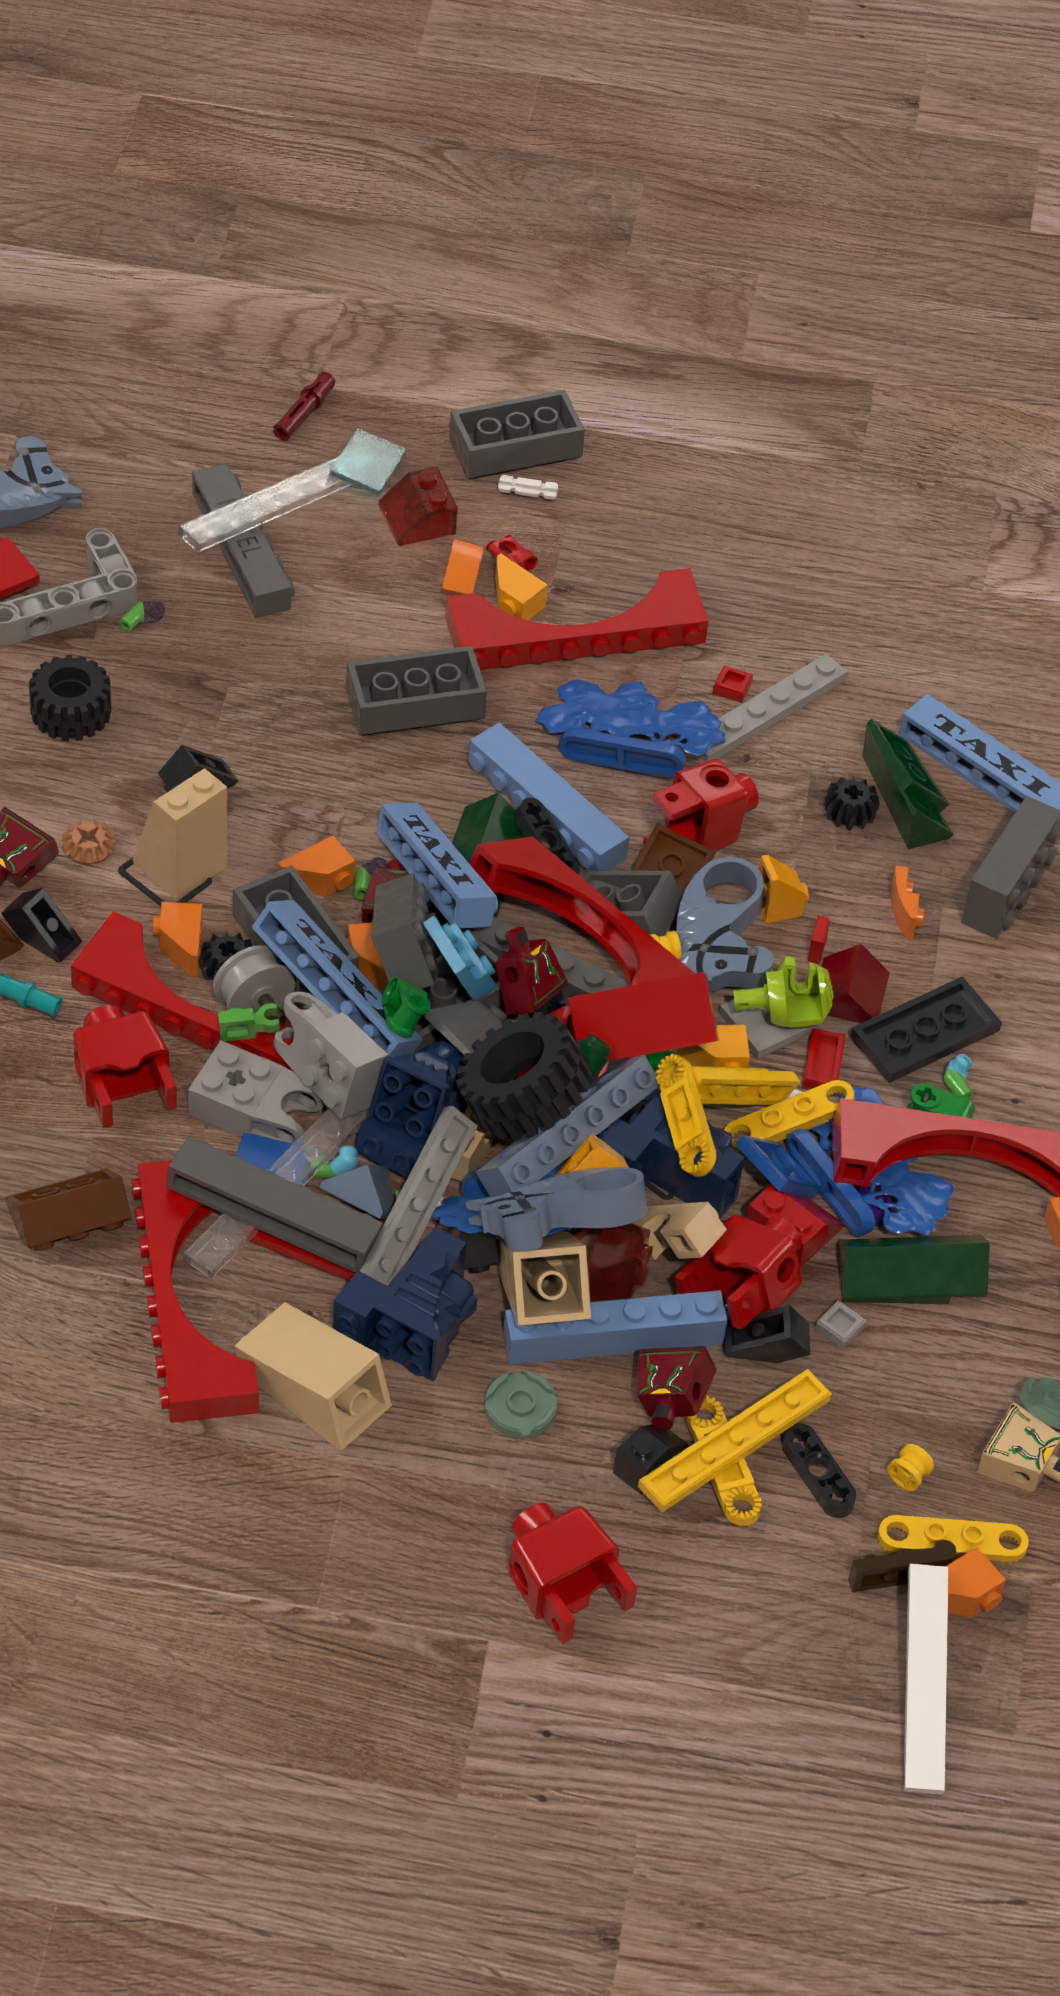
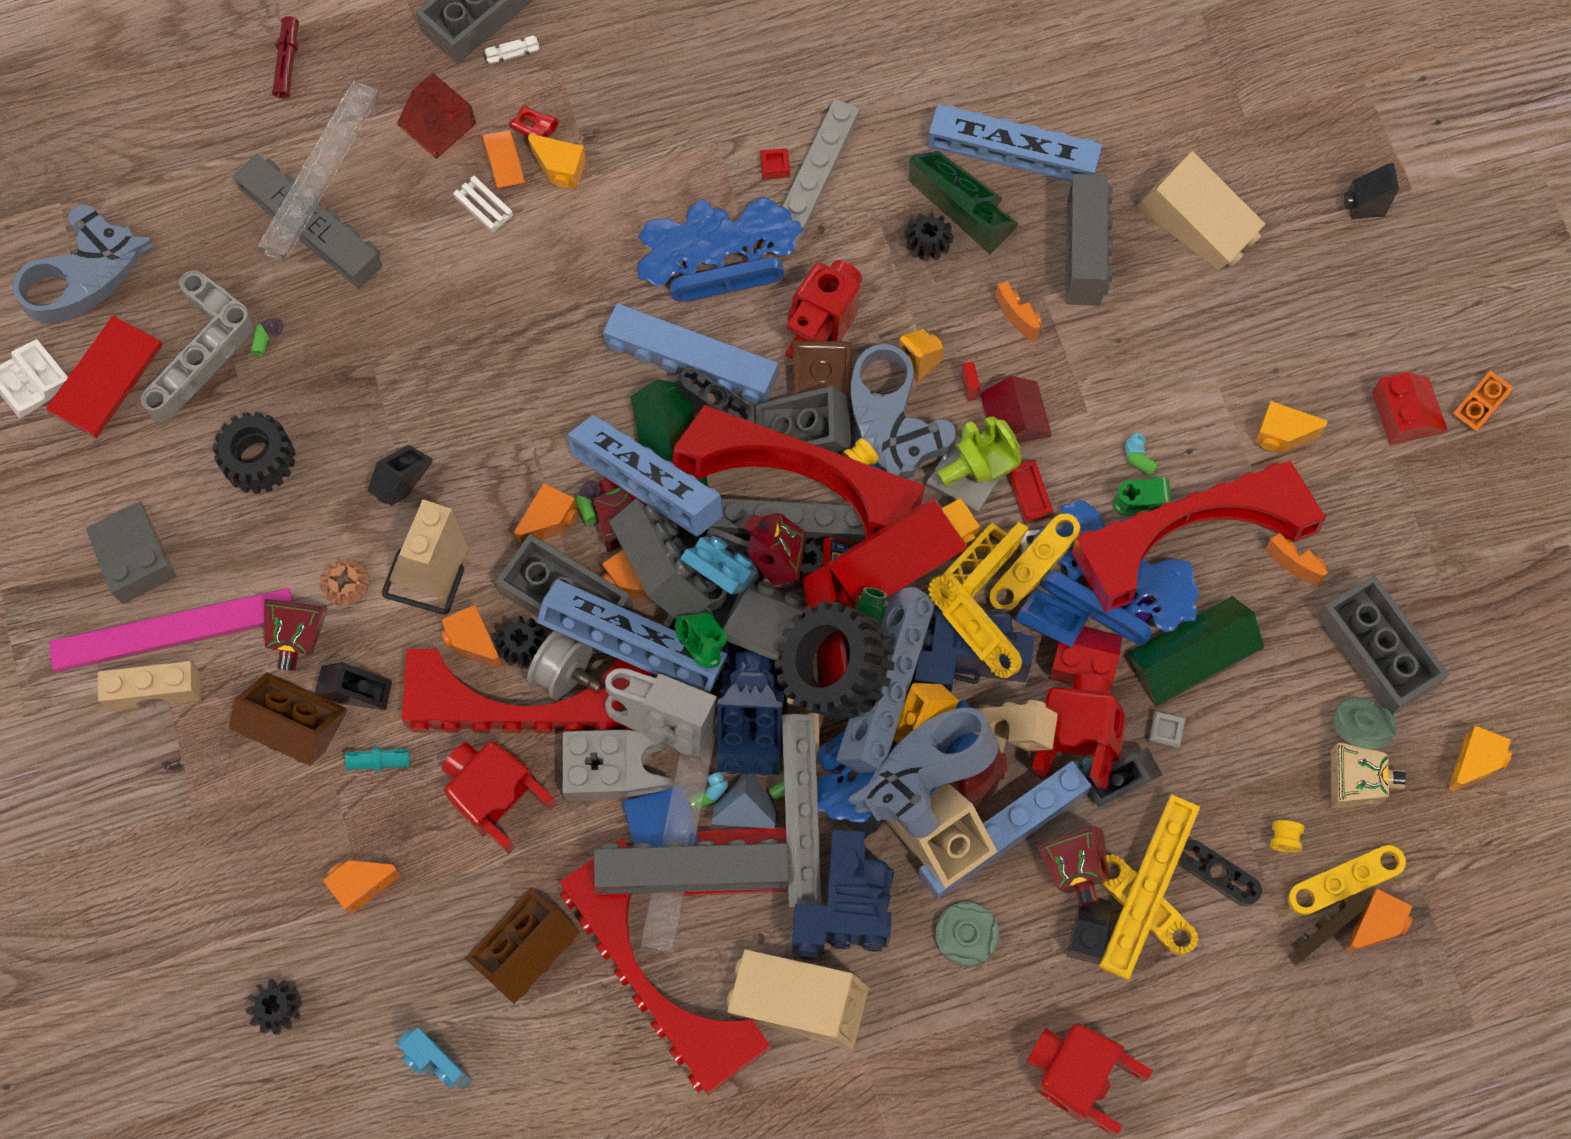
camera: 20 degrees left, 20 degrees up
(243, 1023) = (570, 710): bright green plate -> none
(367, 461) = (369, 90): clear light blue piece -> none
(415, 582) = (467, 189): none -> white tile
(416, 690) = (532, 303): dark grey brick -> none
(663, 619) = (565, 217): red arch -> none
(926, 1029) = (1093, 423): black plate -> none
(926, 1679) = (1396, 1023): white tile -> none

